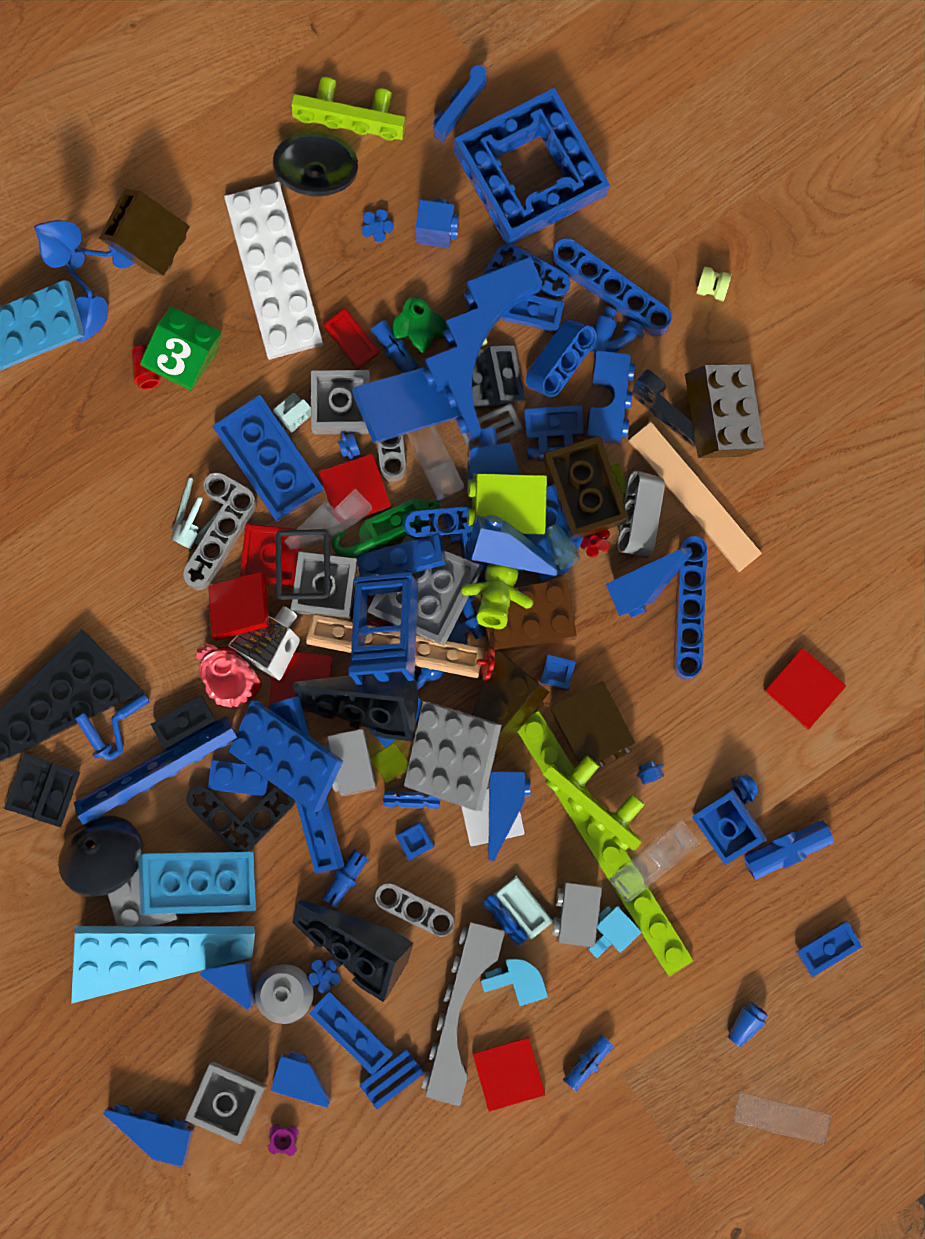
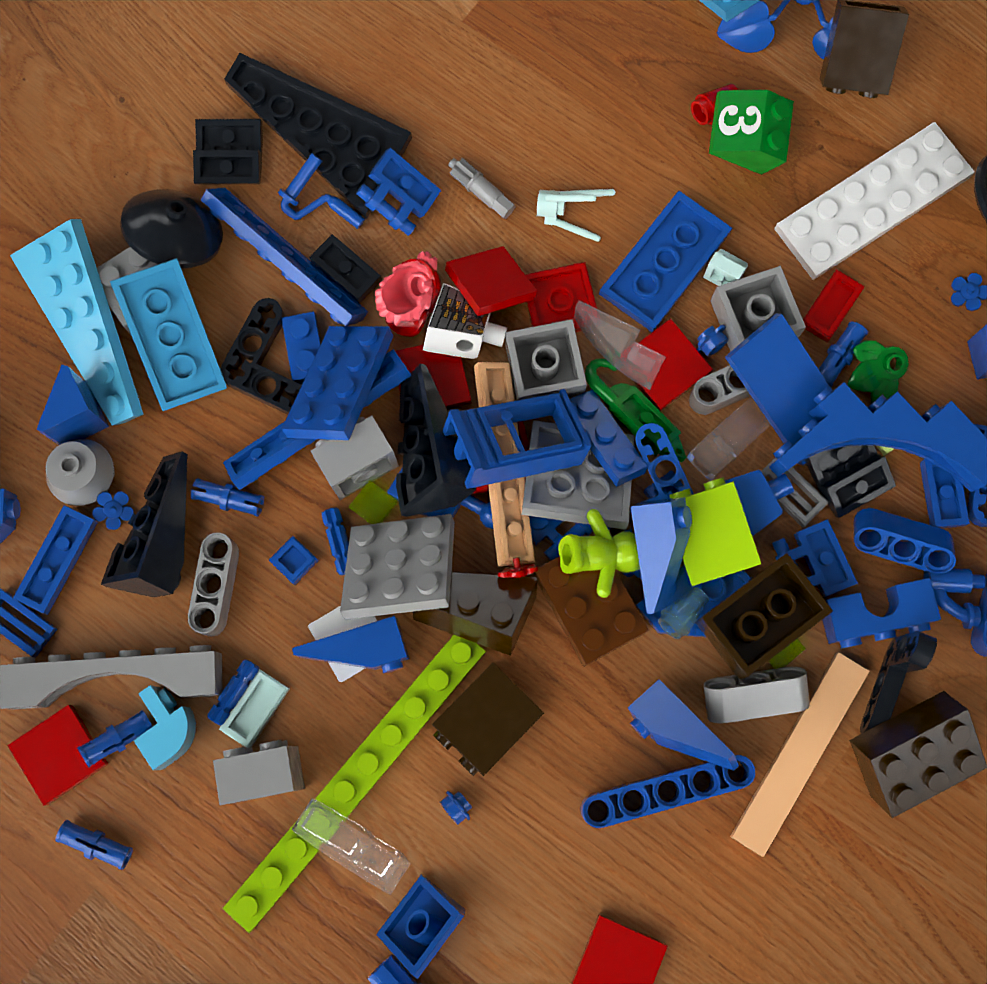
camera: 75 degrees right, 5 degrees down
(129, 648) = (405, 184): none -> blue plate
(150, 587) = (481, 187): none -> light grey piece
(214, 535) = (562, 231): light grey beam -> none
(279, 564) = (581, 291): black piece -> none
(512, 1022) = (114, 738): none -> blue pin
(557, 672) = (538, 659): blue tile -> none
(595, 543) = (704, 653): red plant -> none
(601, 817) = (382, 764): lime plate -> none
(615, 930) = (256, 826): medium azure brick -> none
(745, 788) = (474, 929): blue plate -> none

